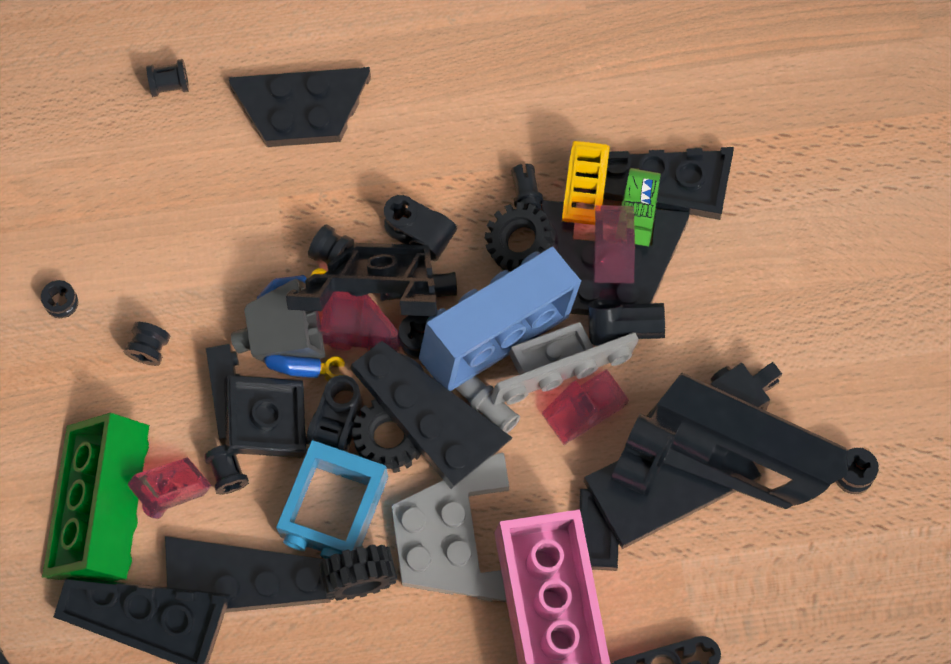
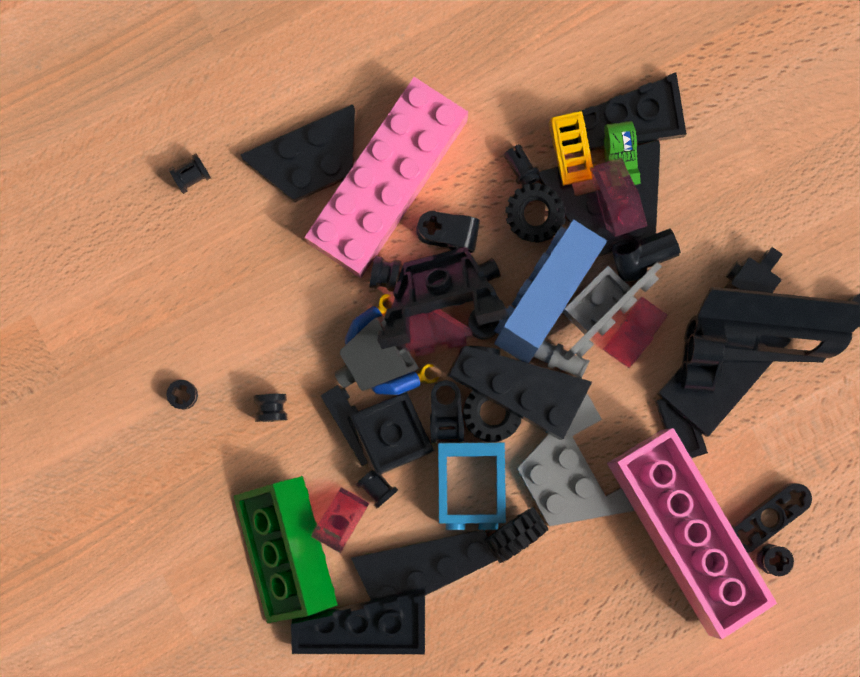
camera: 25 degrees left, 15 degrees up
(373, 150) = (387, 177): none -> bright pink brick

